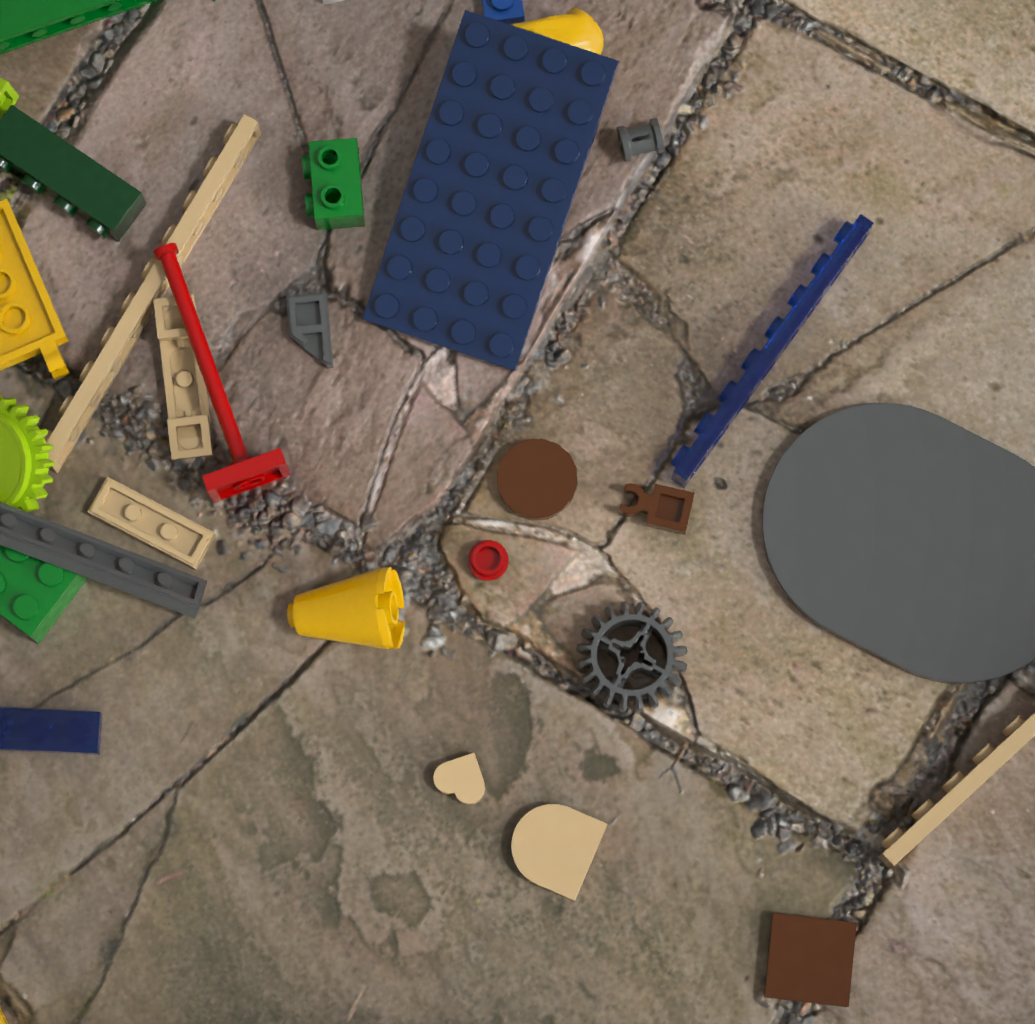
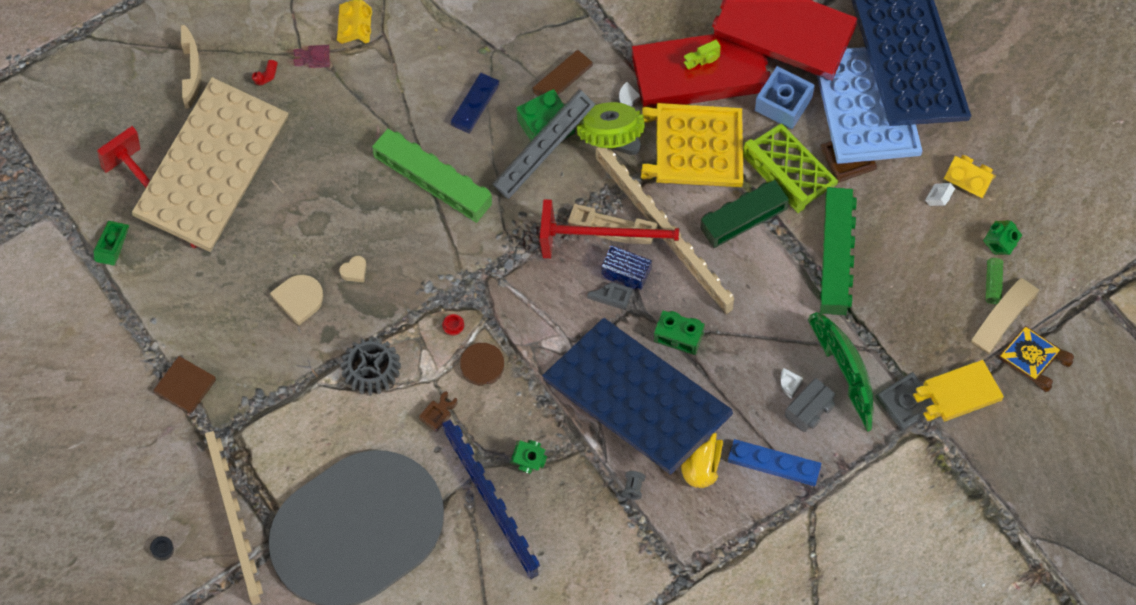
camera: 115 degrees right, 15 degrees down
(151, 523) = (549, 187): tan tile -> none
(220, 730) = (432, 175): none -> bright green brick
(254, 320) = (626, 267): none -> clear blue brick
(353, 610) = (456, 253): yellow cone -> none
(674, 321) = (520, 456): none -> green brick

